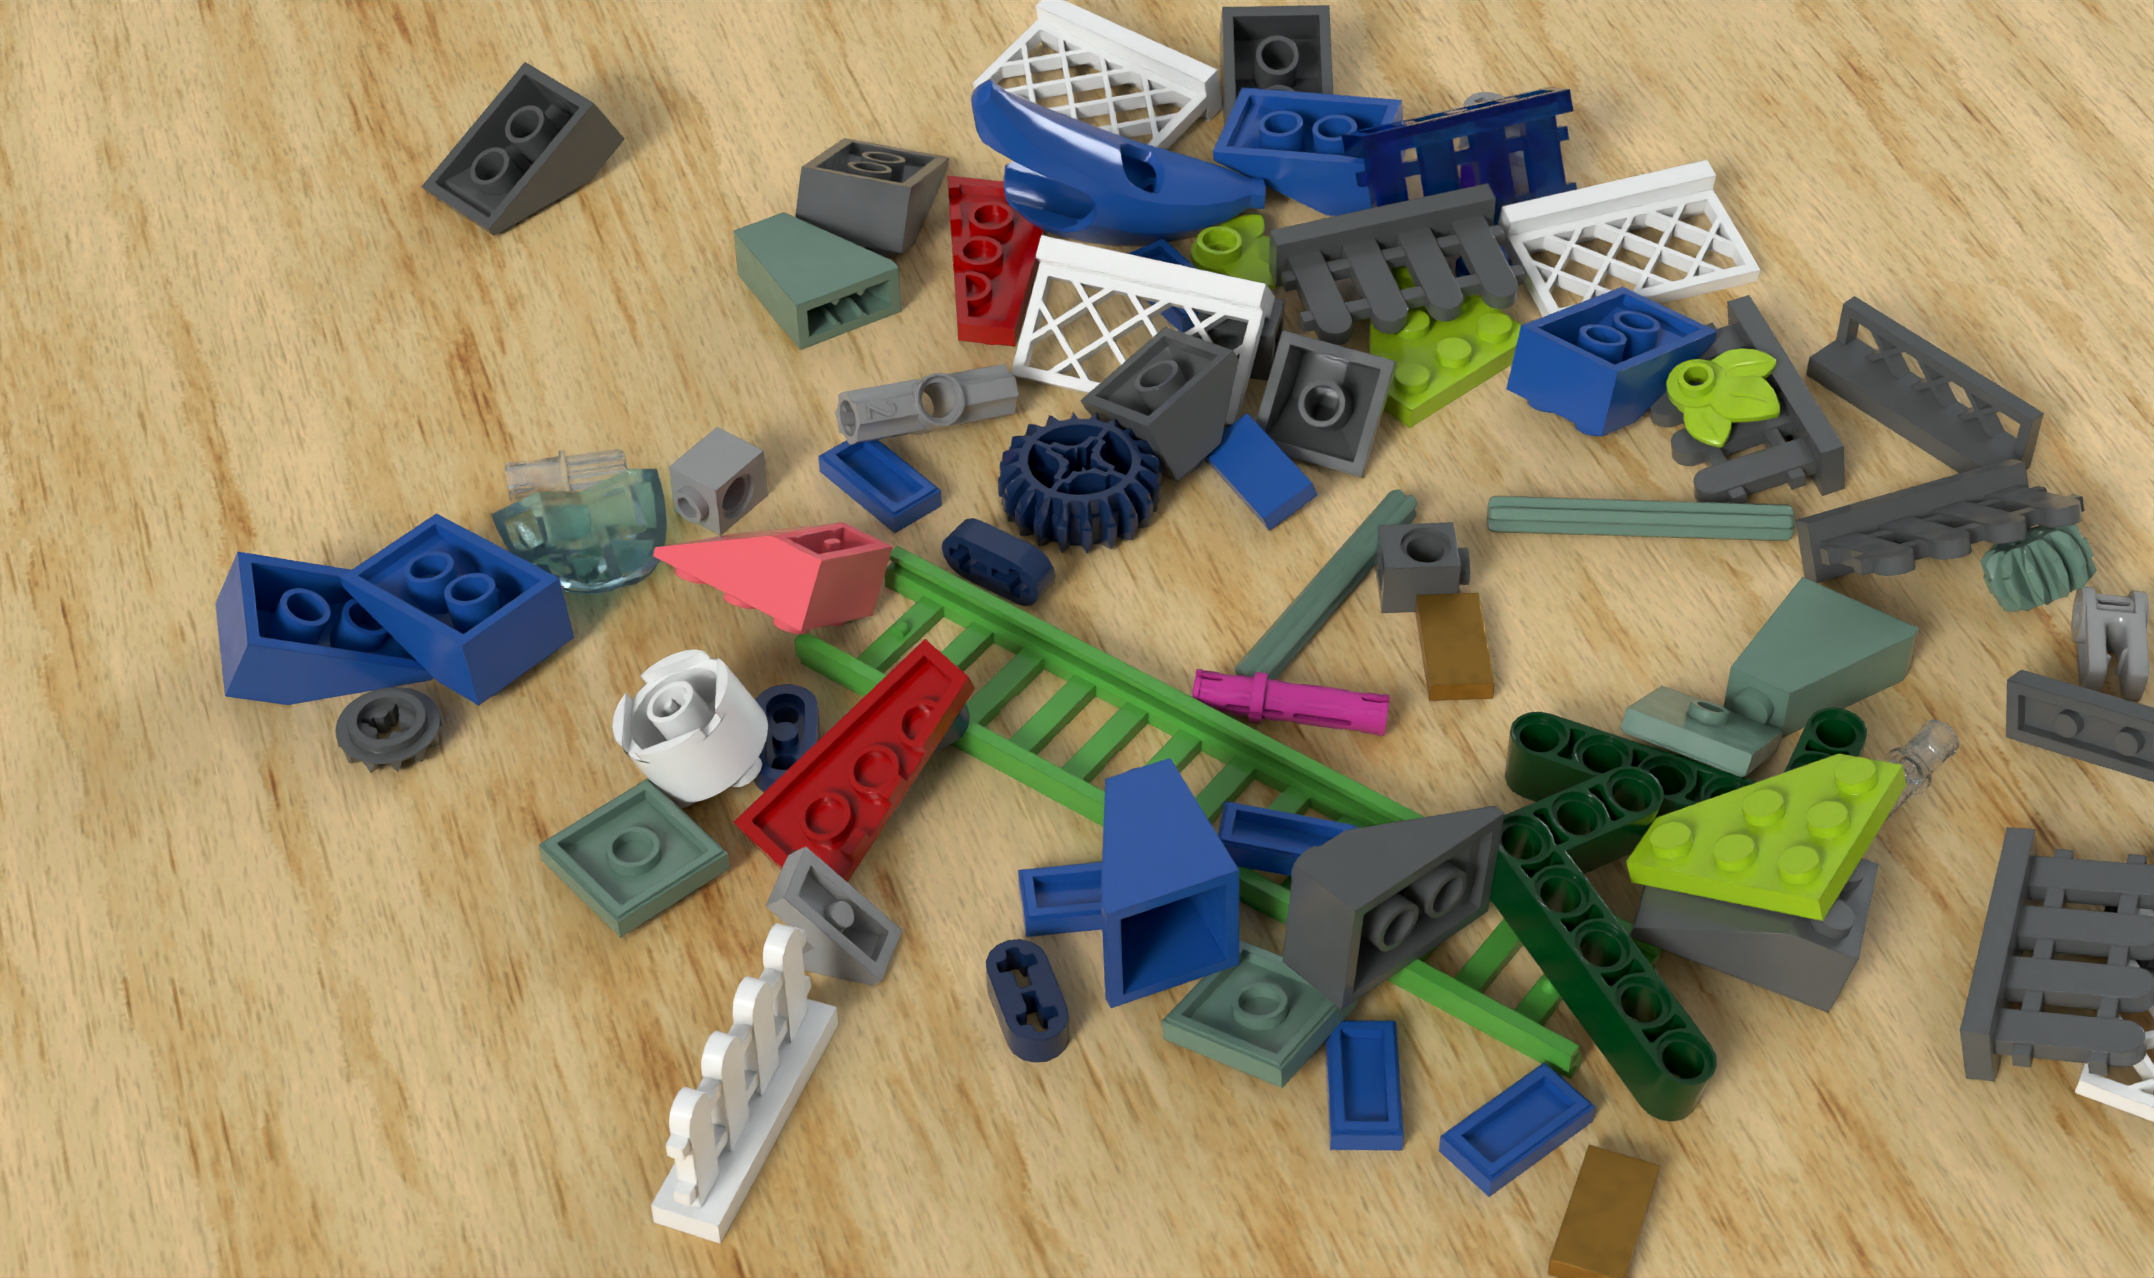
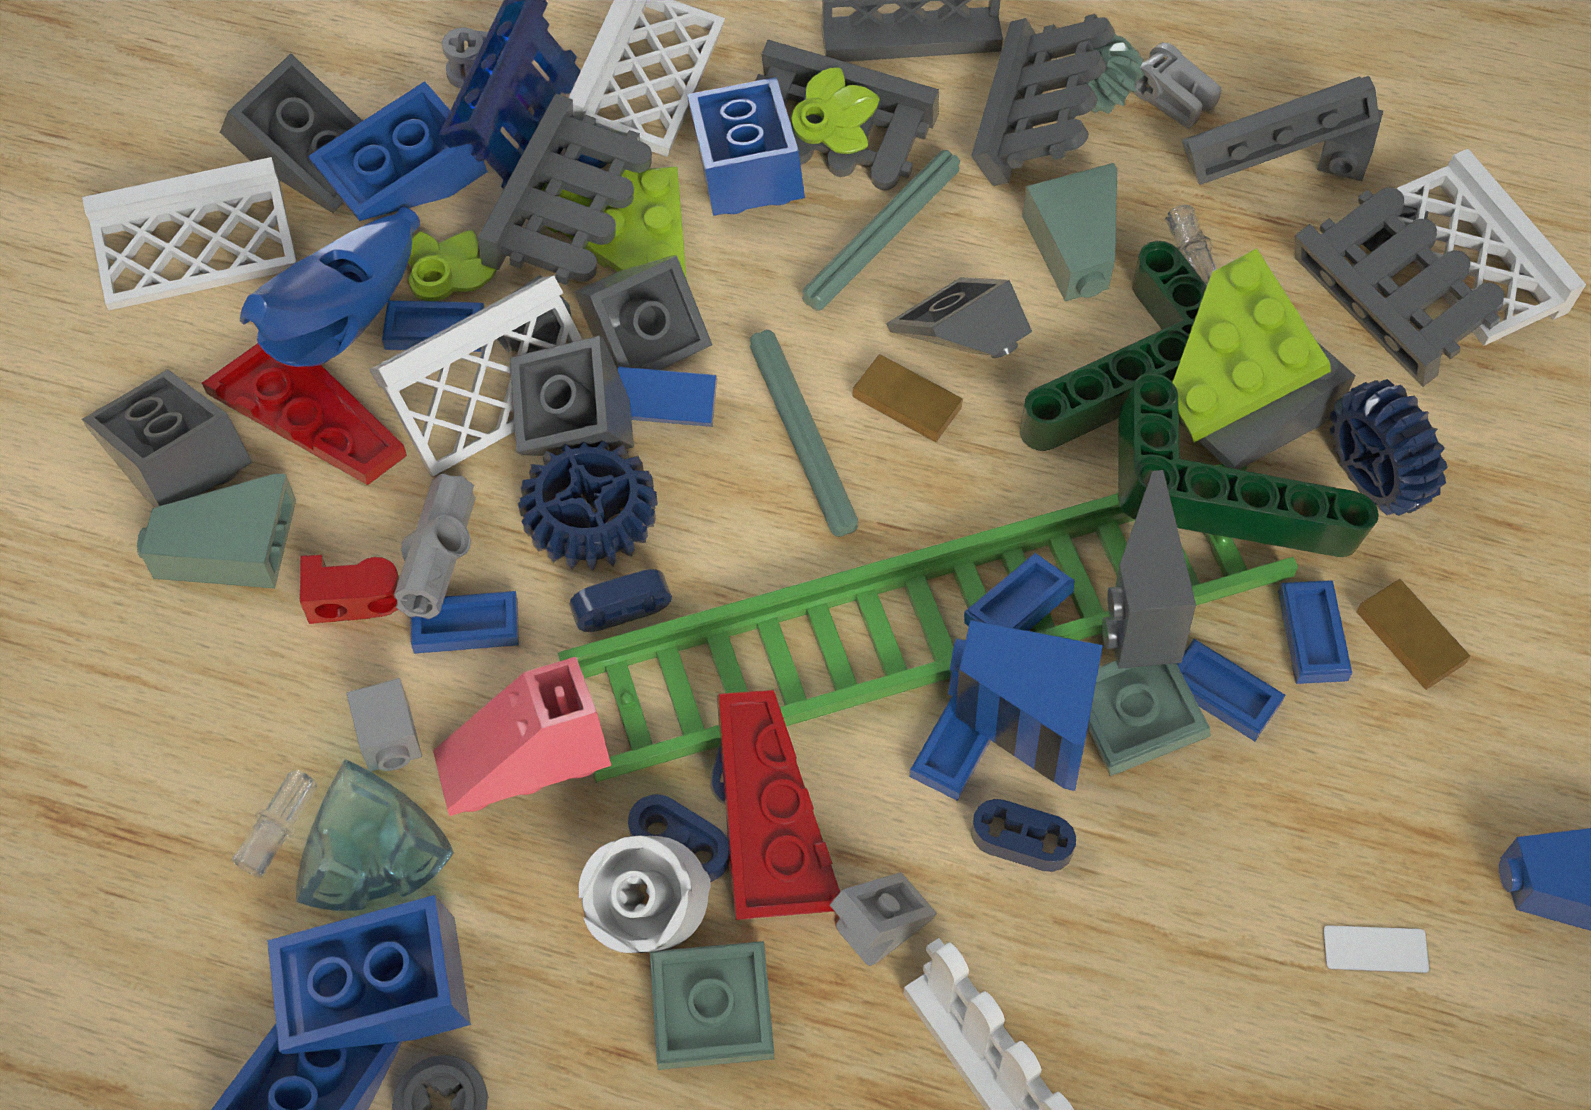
camera: 55 degrees left, 15 degrees up
(824, 373) = (347, 590): none -> red leg
(1292, 702) = (874, 529): dark pink pin -> none
(1418, 562) = (831, 386): dark grey brick -> none
(1589, 634) = (969, 317): none -> dark grey slope
(1701, 731) = (1098, 322): sand green plate -> none
(1801, 1045) = (1388, 447): none -> dark blue gear

